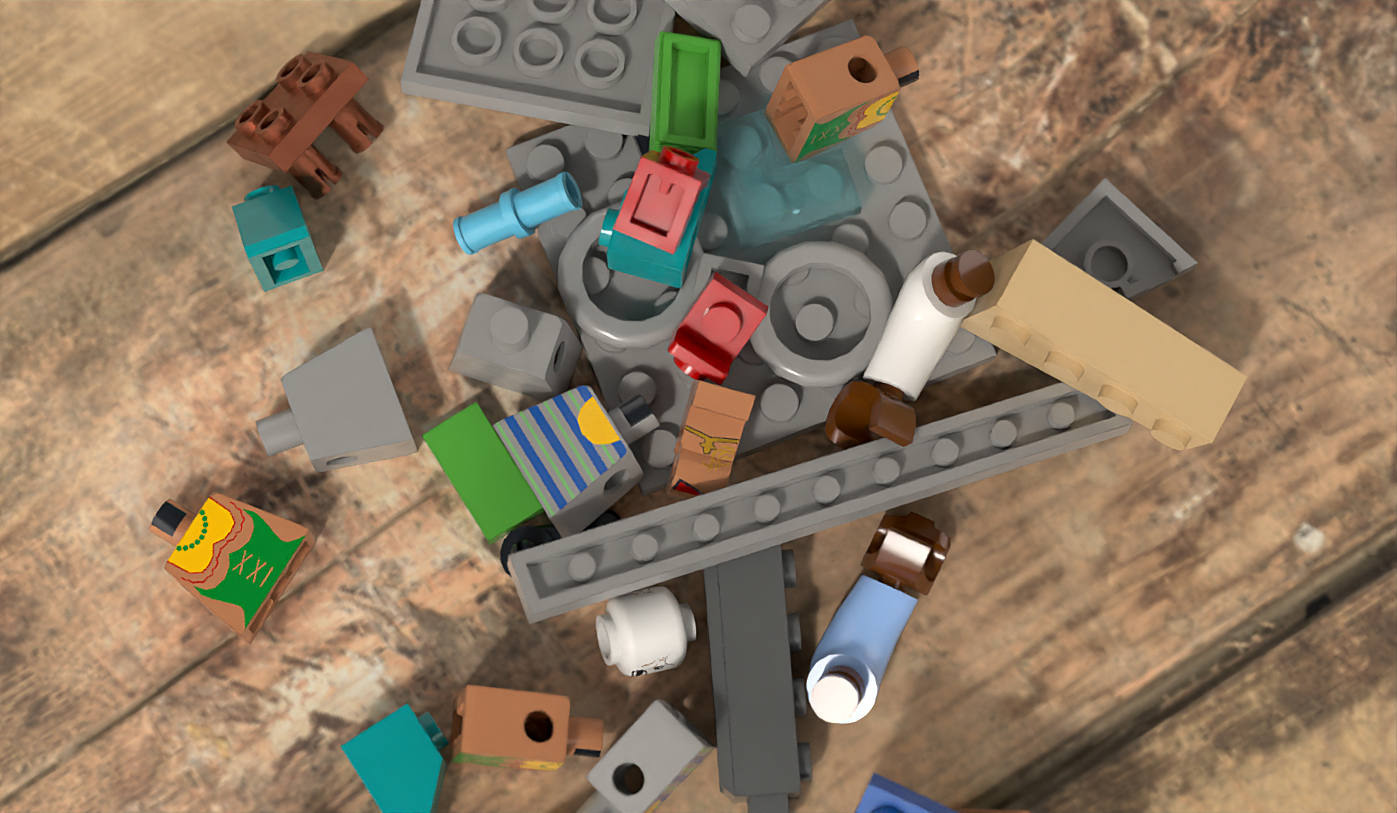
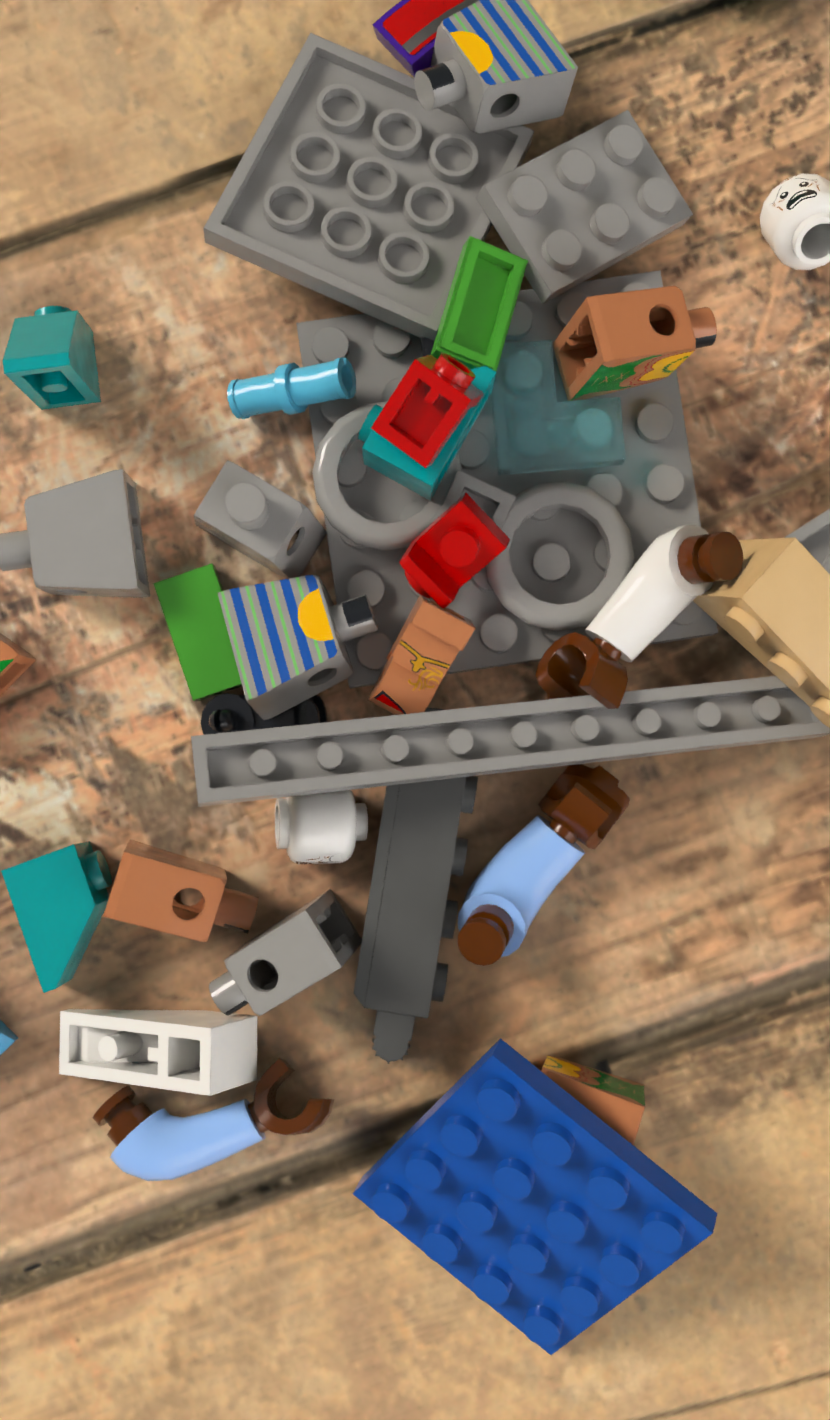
camera: 15 degrees right, 10 degrees up
(309, 97) = (120, 223): copper plate -> none

